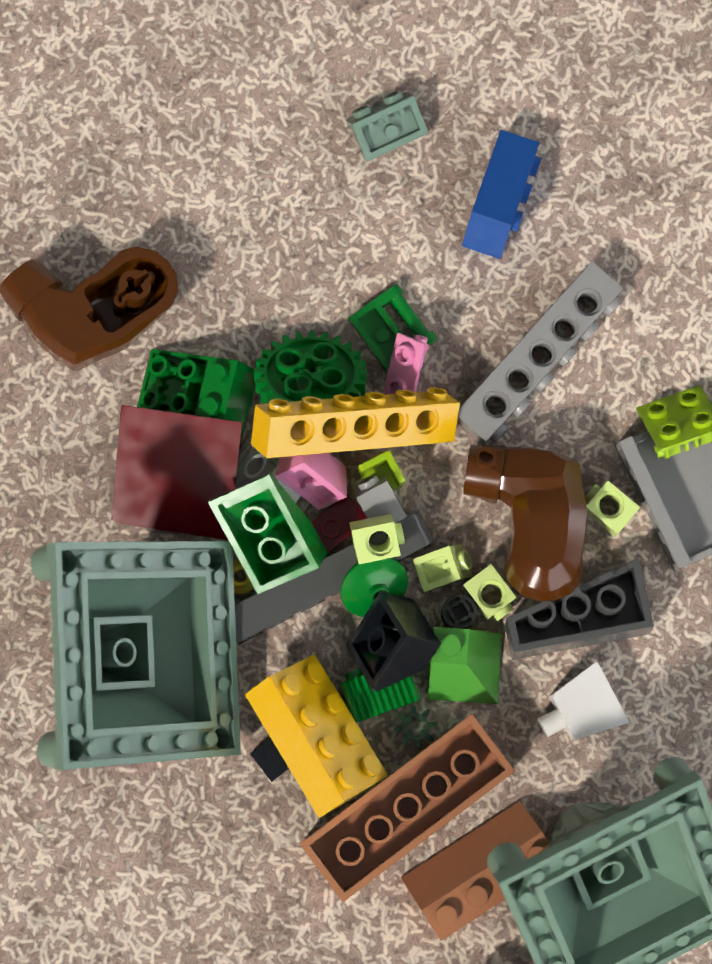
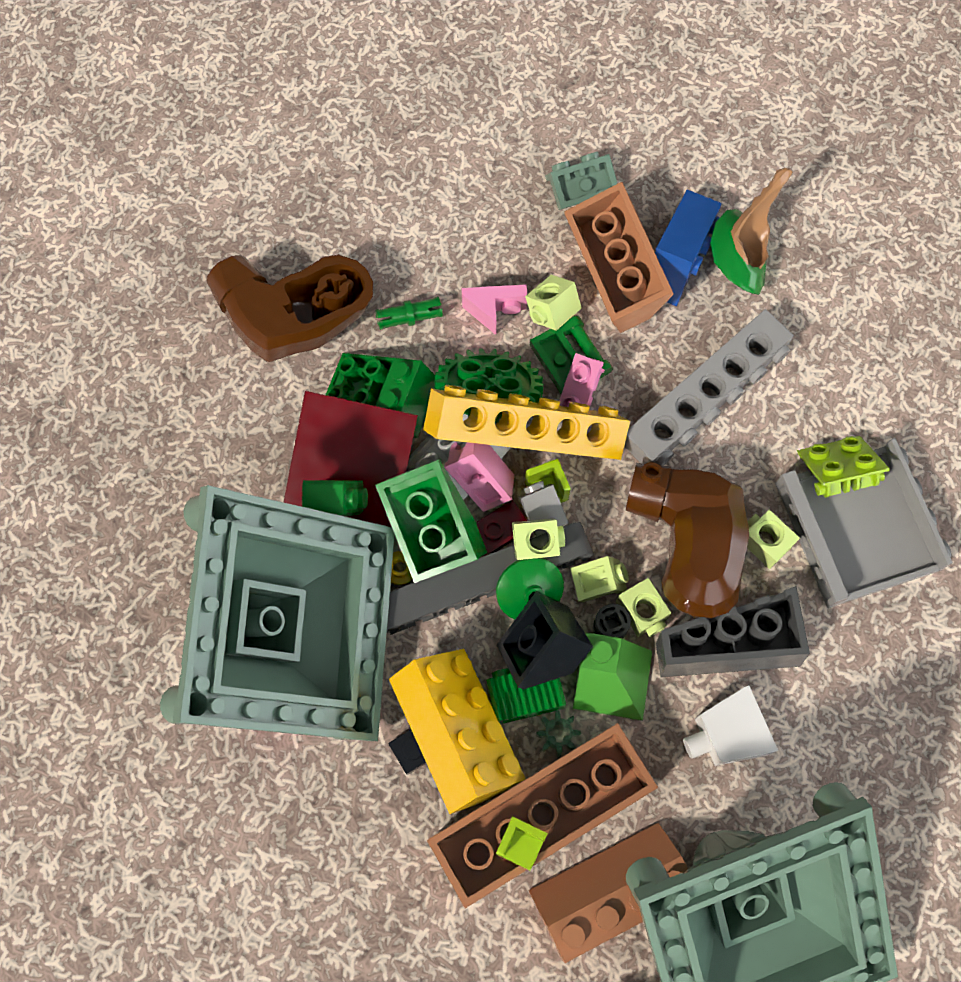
camera: 10 degrees right, 10 degrees down
(166, 516) = (335, 496): none -> green brick
(216, 298) = (409, 313): none -> green pin
(295, 279) = (485, 301): none -> bright pink slope
(368, 274) = (553, 302): none -> yellowish green brick
(389, 838) = (521, 843): none -> lime panel
(433, 218) = (619, 257): none -> nougat slope
(563, 187) = (742, 238): none -> hat

